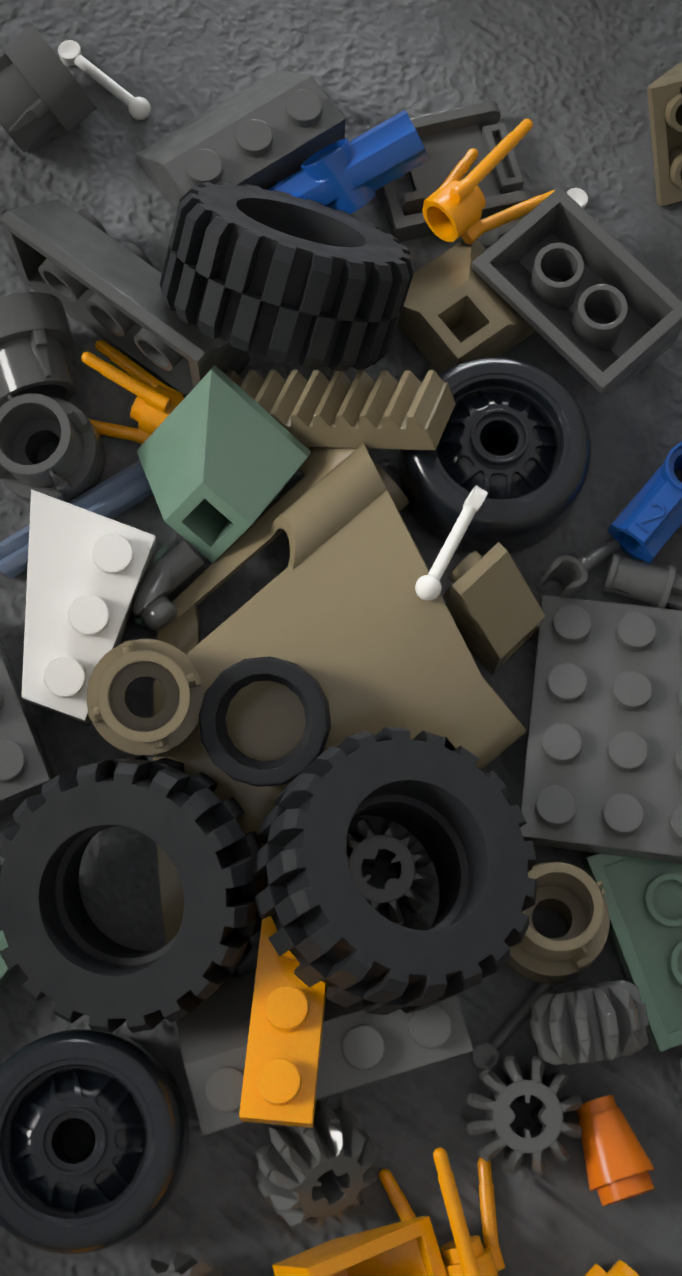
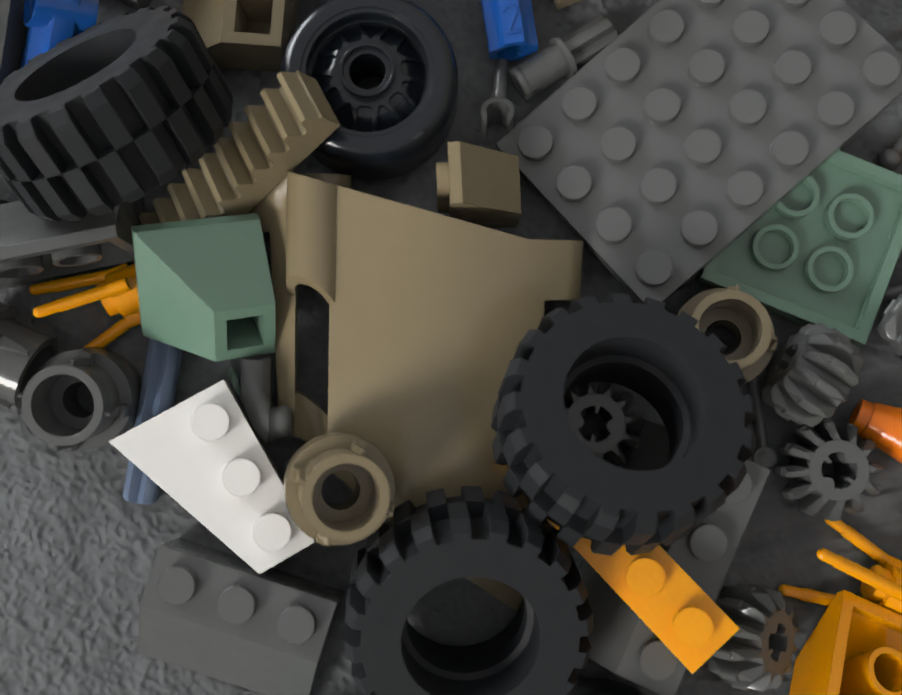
camera: 45 degrees left, 10 degrees up
(214, 728) = (440, 465): black tyre -> none
(429, 586) = (437, 218): white hinge -> none

